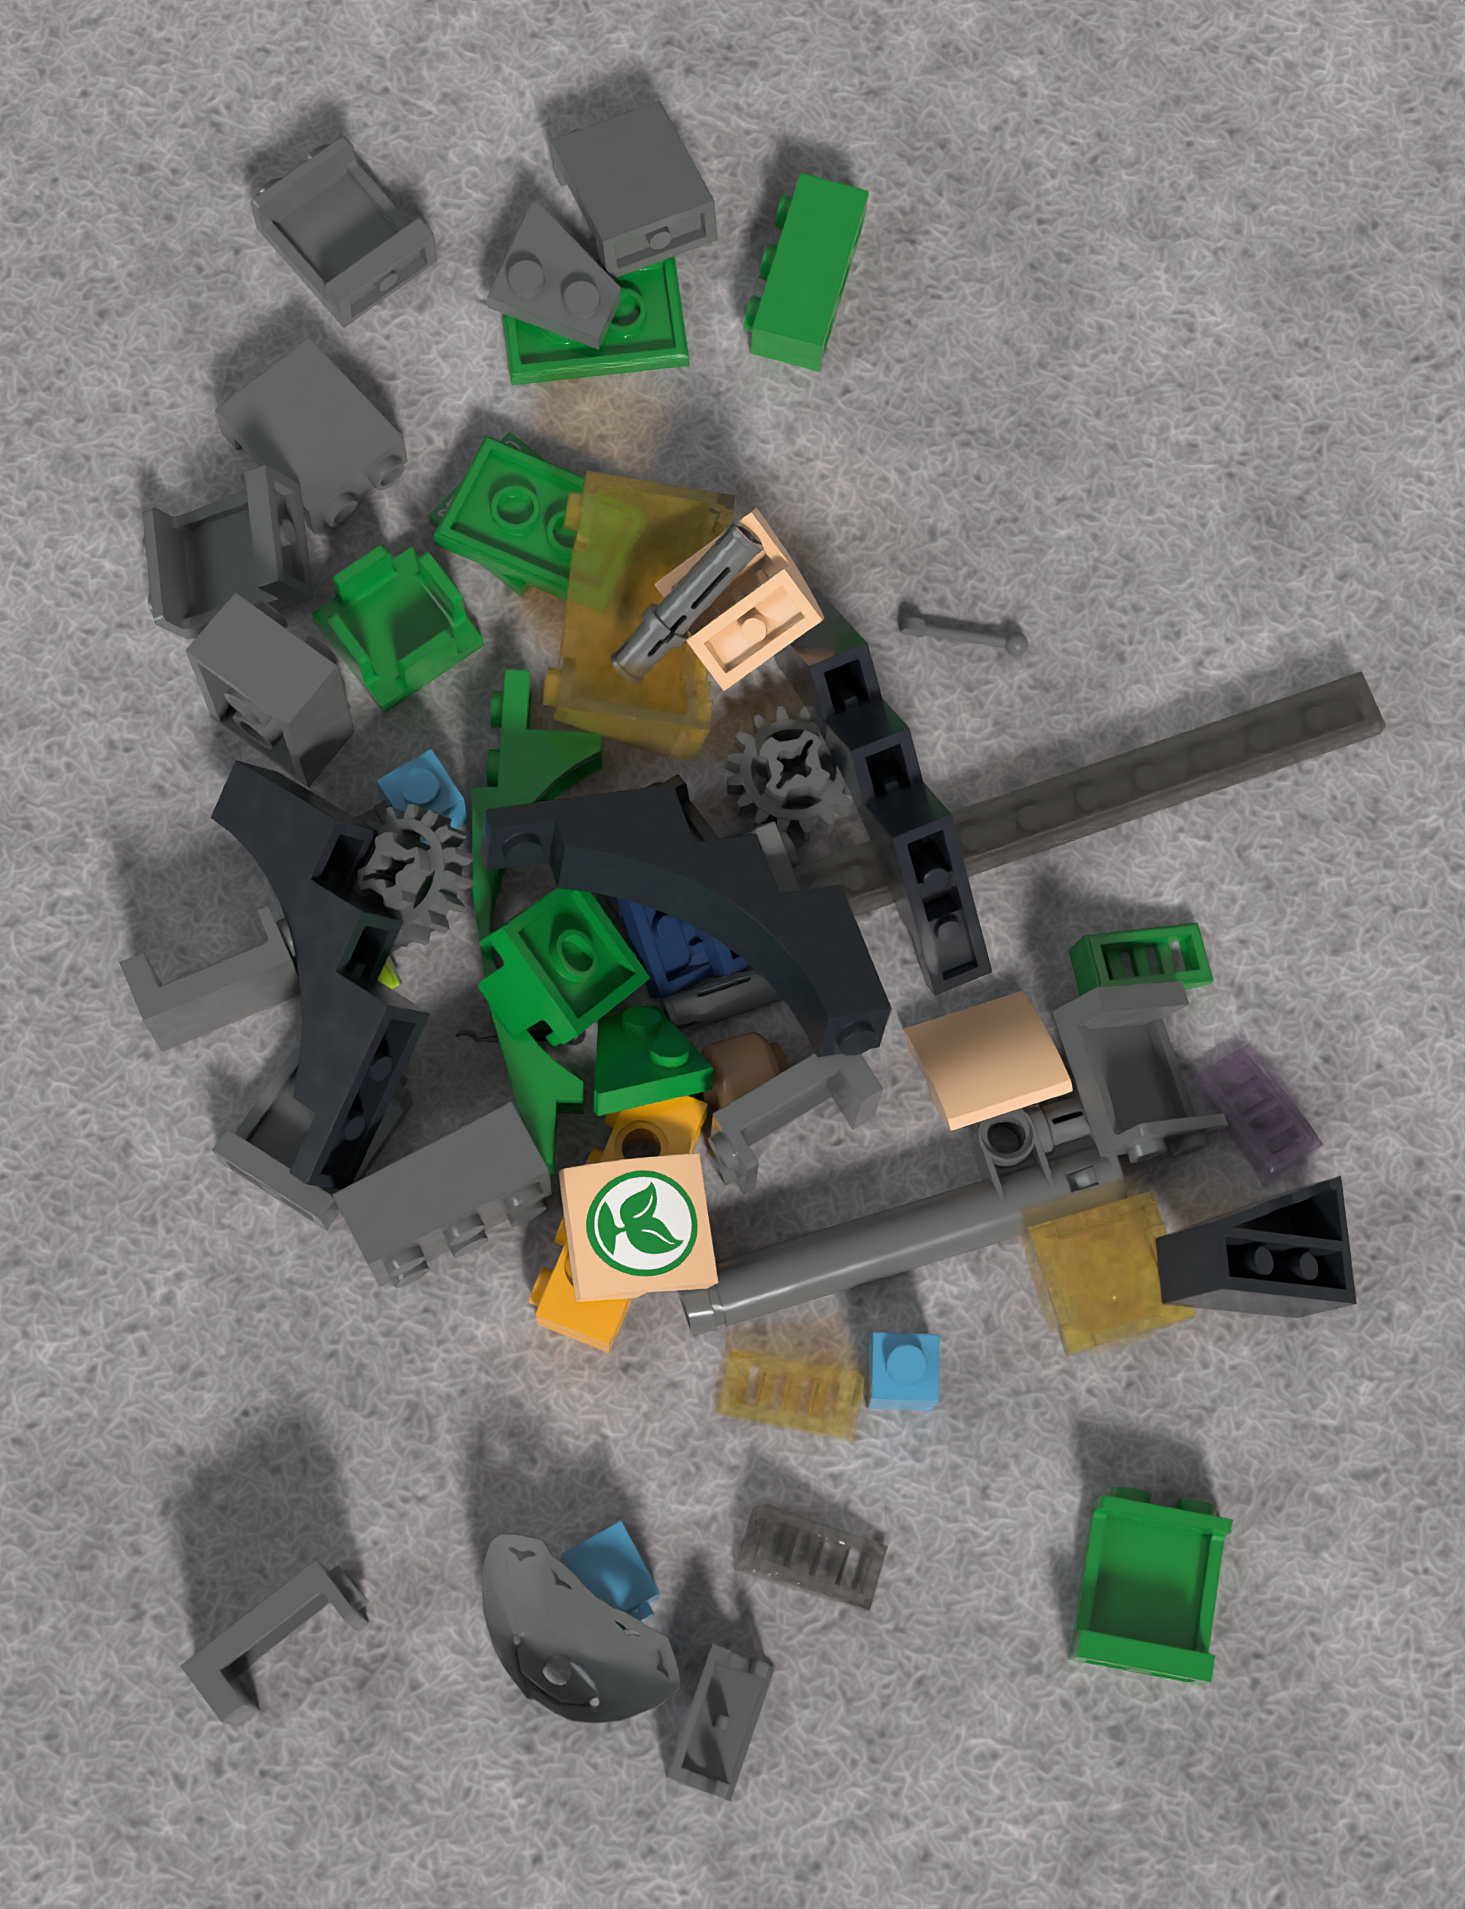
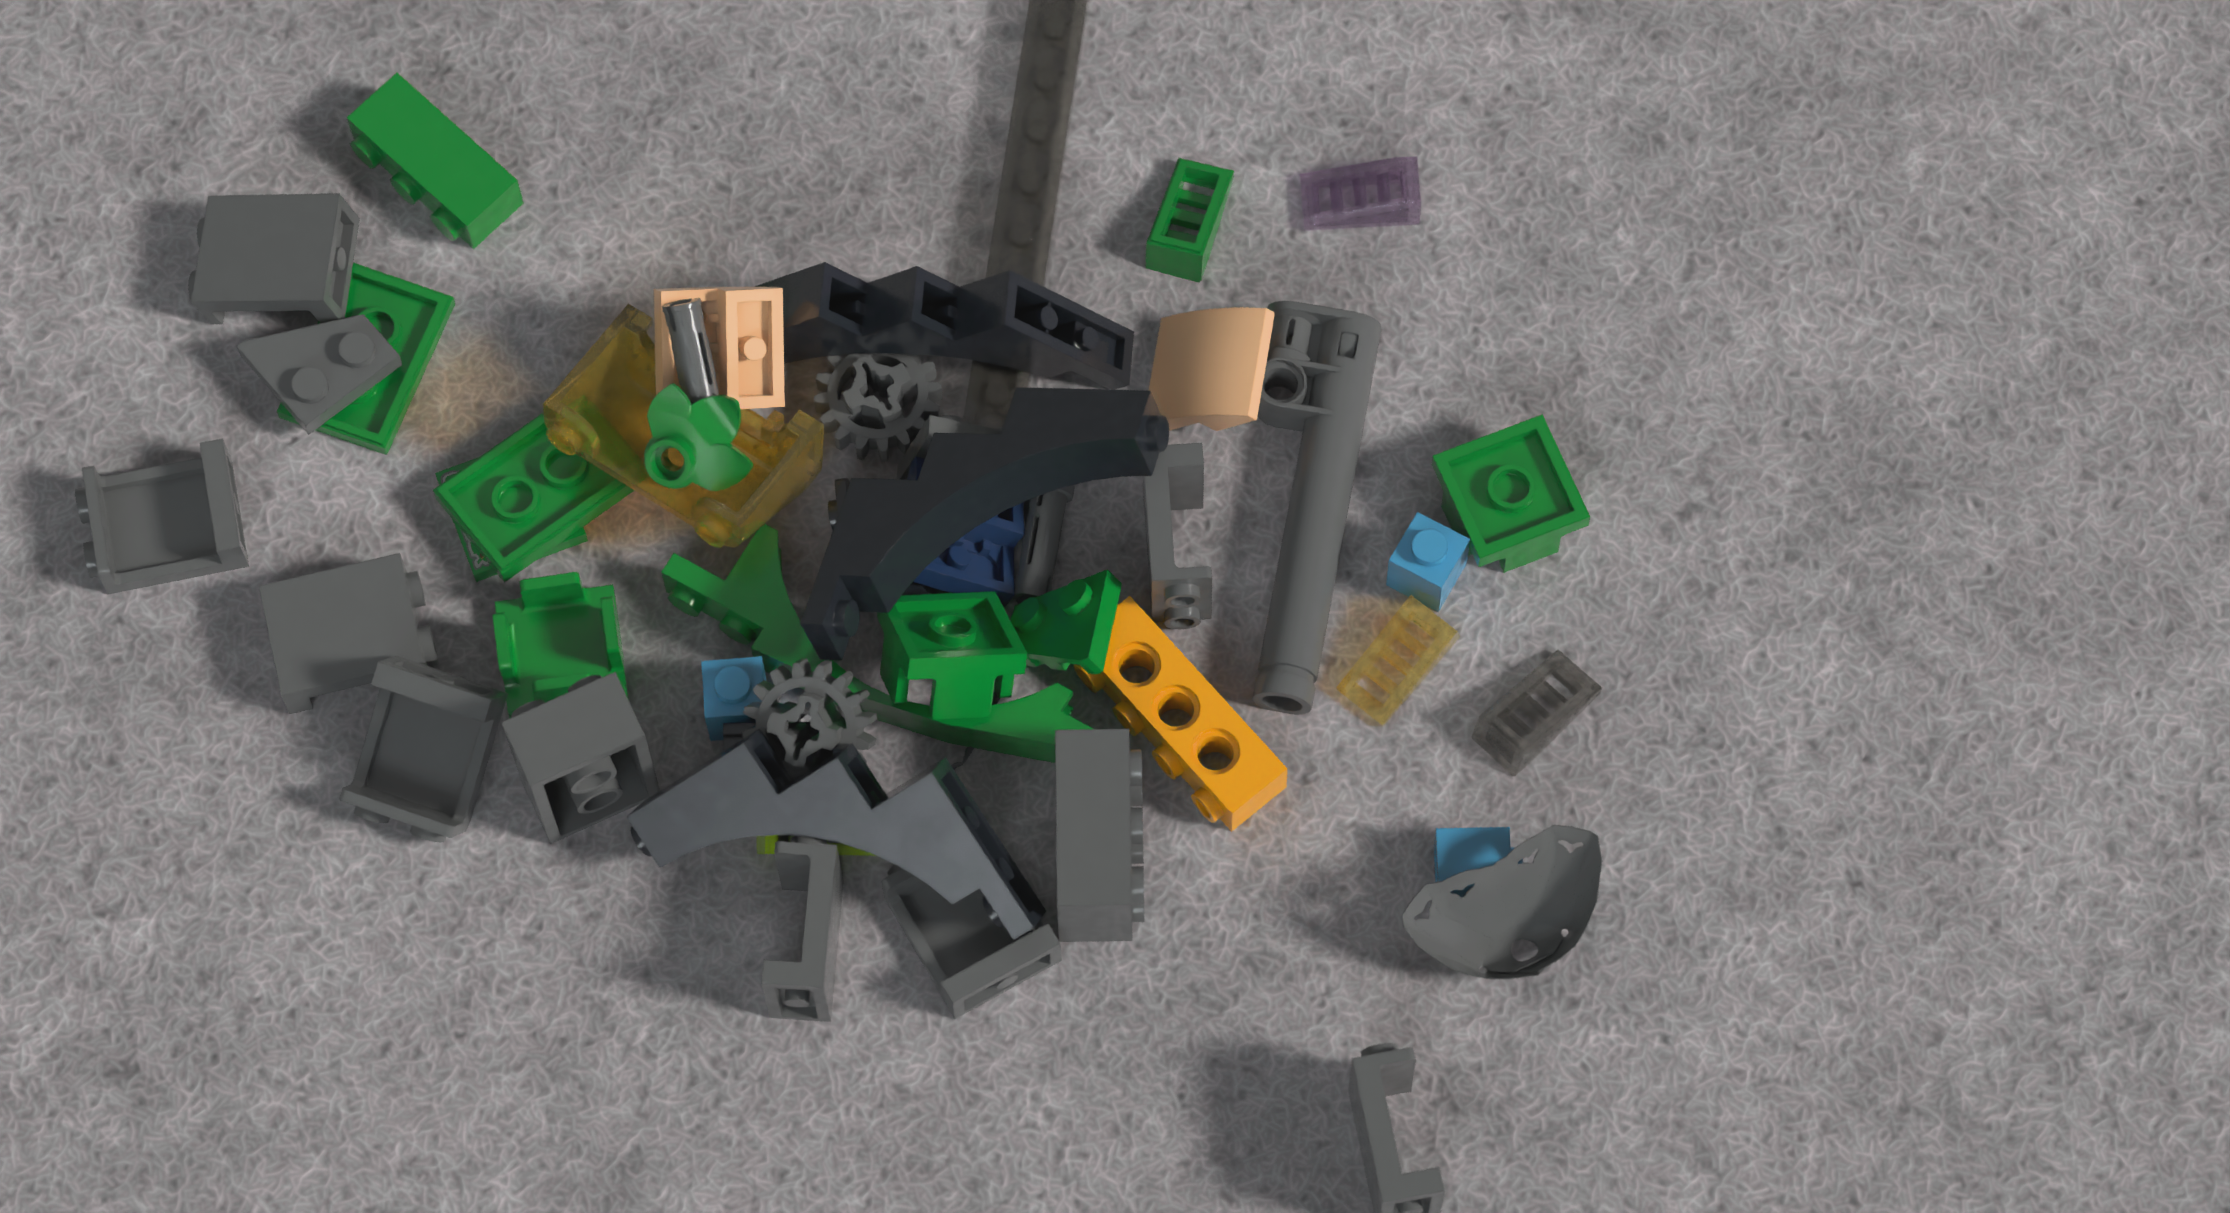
camera: 55 degrees left, 5 degrees down
(630, 624) = (701, 435): none -> green plate
(637, 1227) = (1206, 693): slope -> none
(720, 1723) = (1631, 844): dark grey hinge -> none
(740, 1067) = (1123, 551): medium nougat head -> none
(1014, 643) = (859, 173): dark grey hinge -> none
(1014, 1416) = (1510, 494): none -> green panel
(1102, 1277) = (1435, 368): clear yellow panel -> none
(1131, 1071) = (1281, 266): dark grey panel -> none
(1149, 1586) = (1693, 470): green panel -> none
(1265, 1257) = (1484, 239): black wedge -> none

